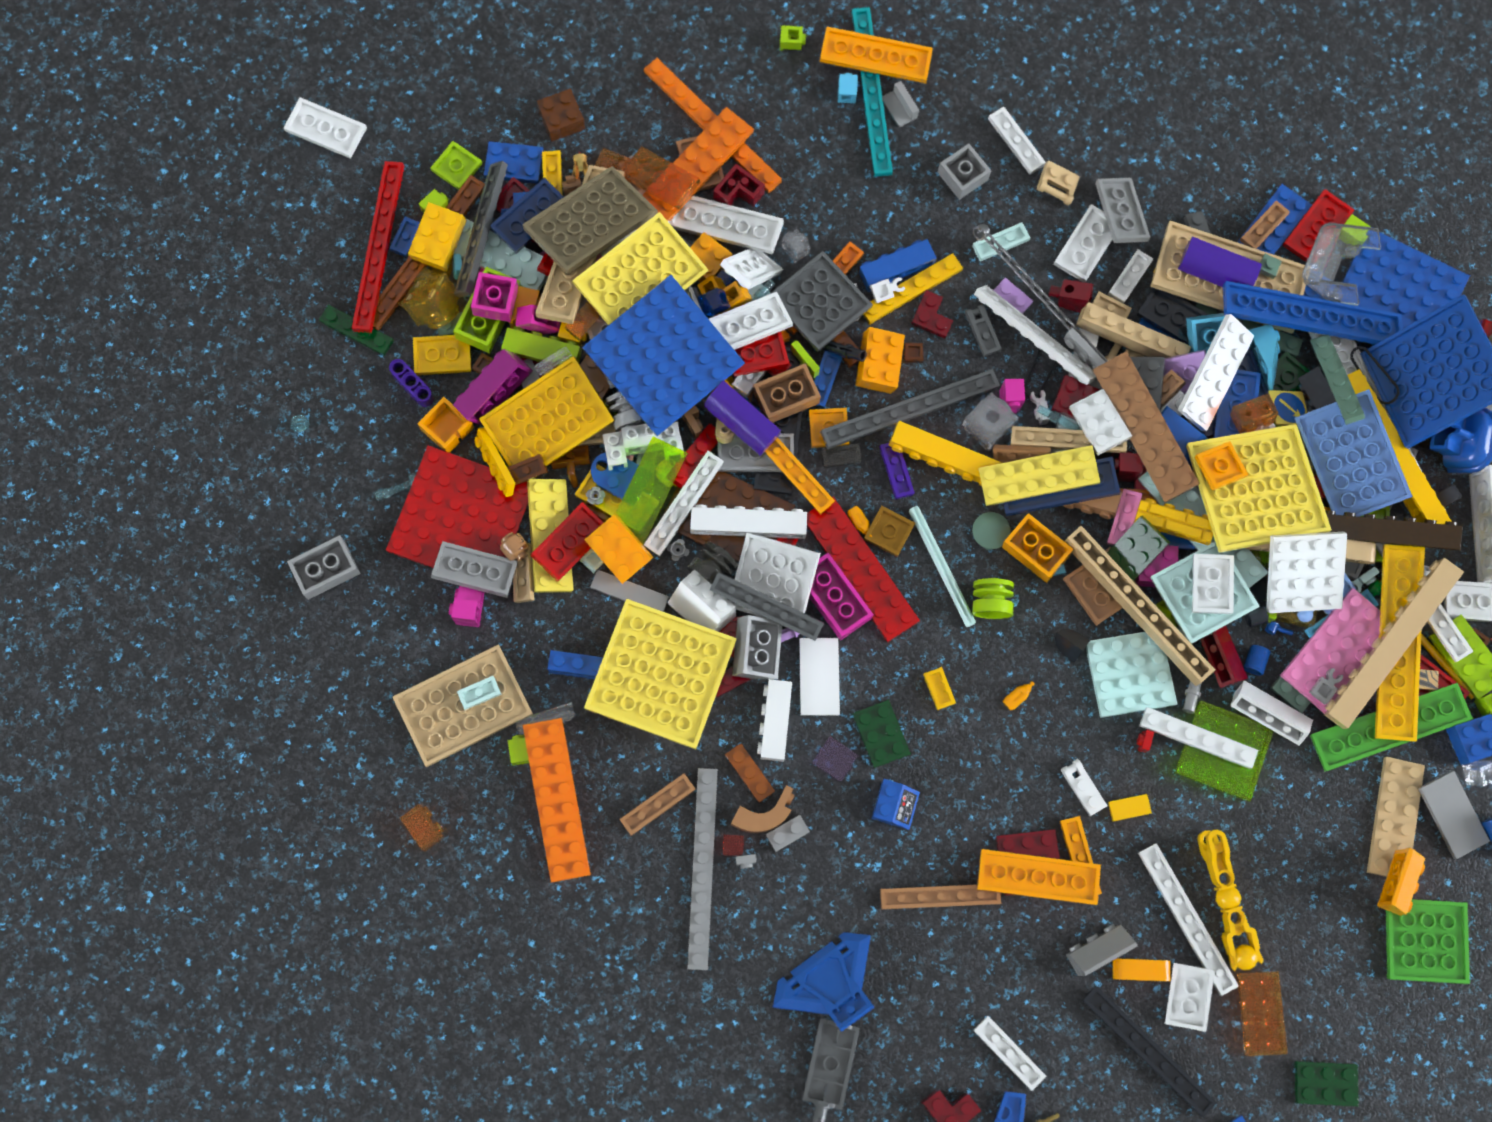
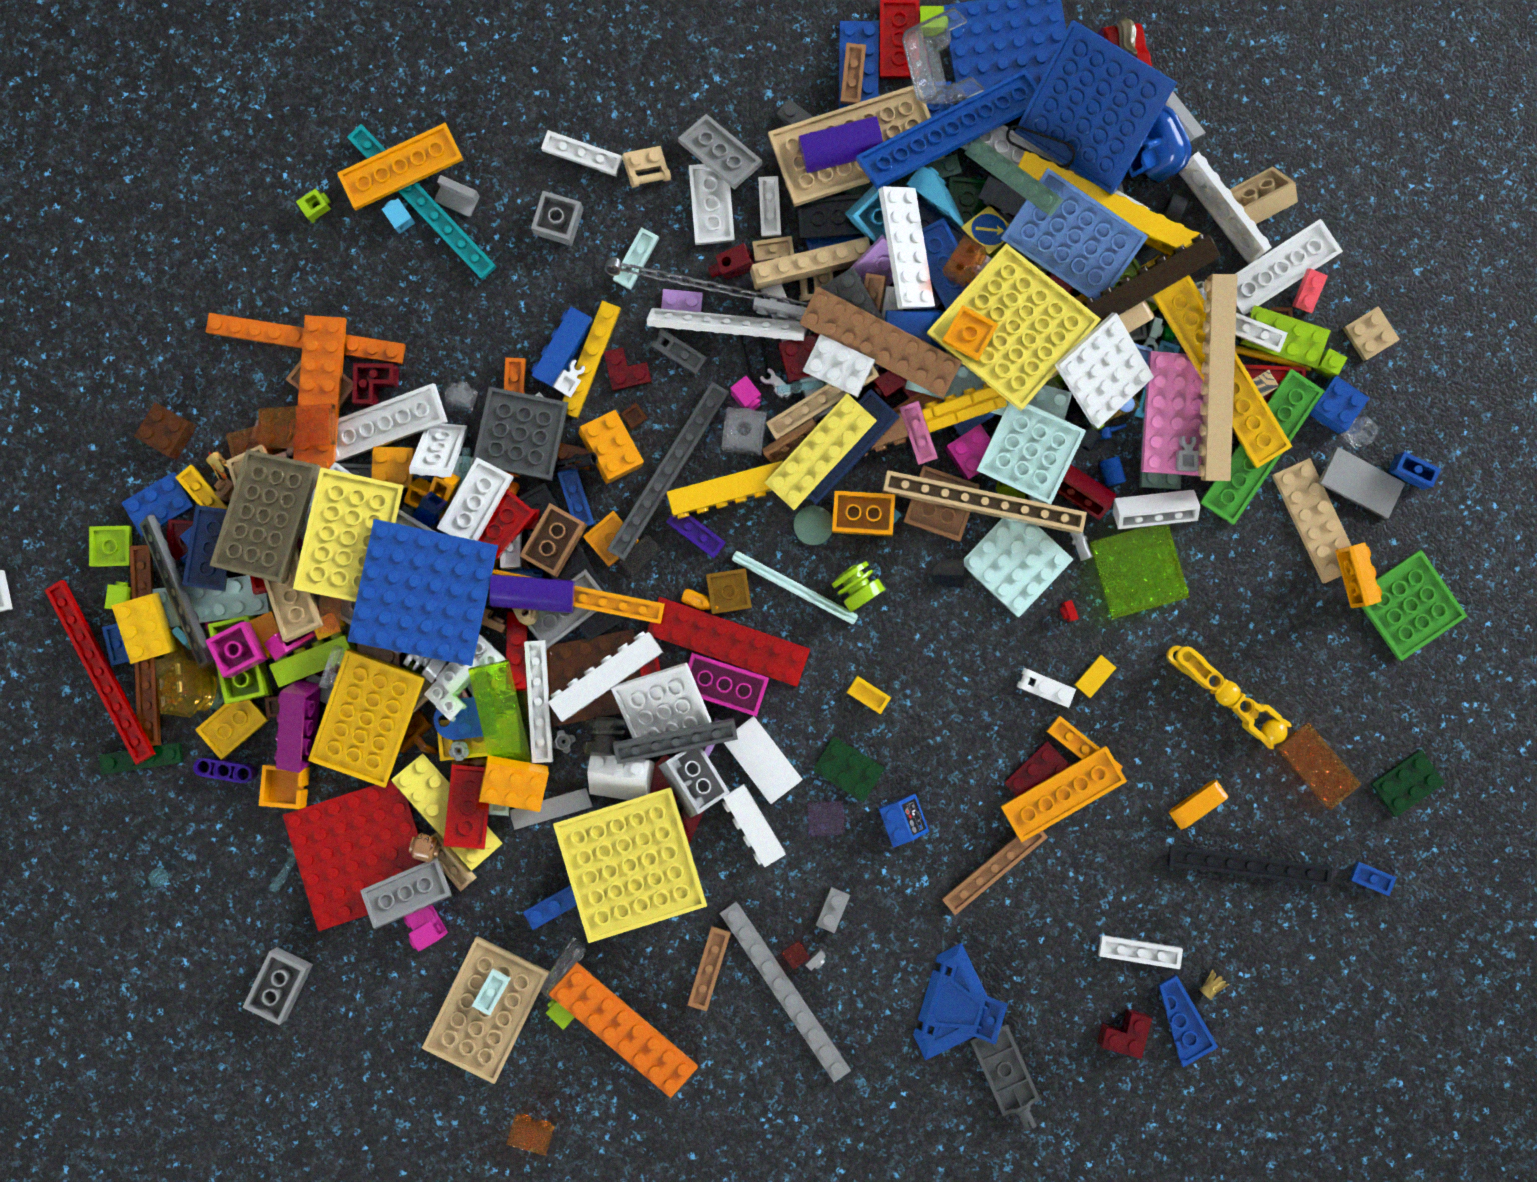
camera: 30 degrees left, 10 degrees up
(497, 466) = (356, 790): yellow plate -> none
(528, 469) = (383, 775): reddish brown plate -> none
(749, 773) = (765, 883): dark orange plate -> none
(763, 822) = (801, 922): medium nougat arch -> none
(802, 355) = (546, 495): lime tile -> none
(1017, 696) = (937, 651): light orange piece -> none
(1100, 949) = (1155, 815): light grey slope -> none
(1138, 548) = (948, 454): plate -> none
(1187, 918) = (1206, 733): white plate -> none
(1189, 997) = (1252, 797): white plate -> none
(1198, 738) = (1111, 576): white plate -> none
(1213, 584) = (1034, 440): white plate -> none
(1269, 266) = (883, 110): sand green plate -> none

